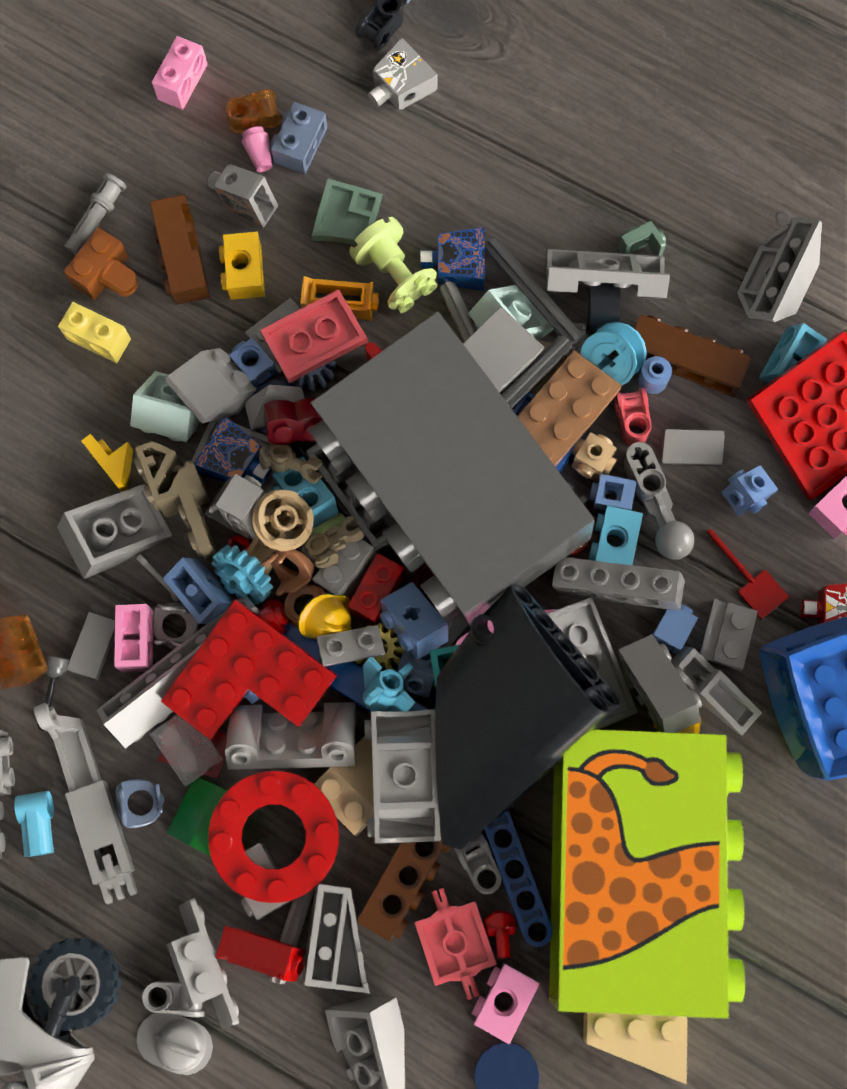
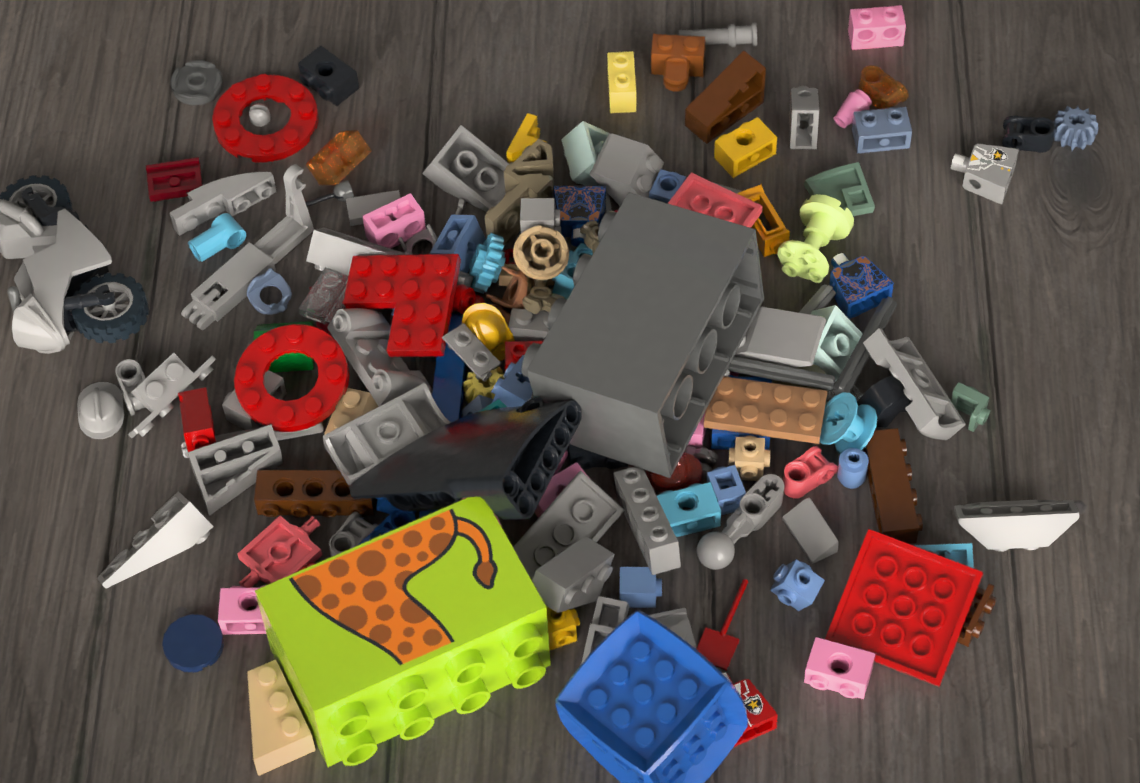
camera: 60 degrees right, 20 degrees down
(385, 688) = (452, 389): medium azure brick -> none

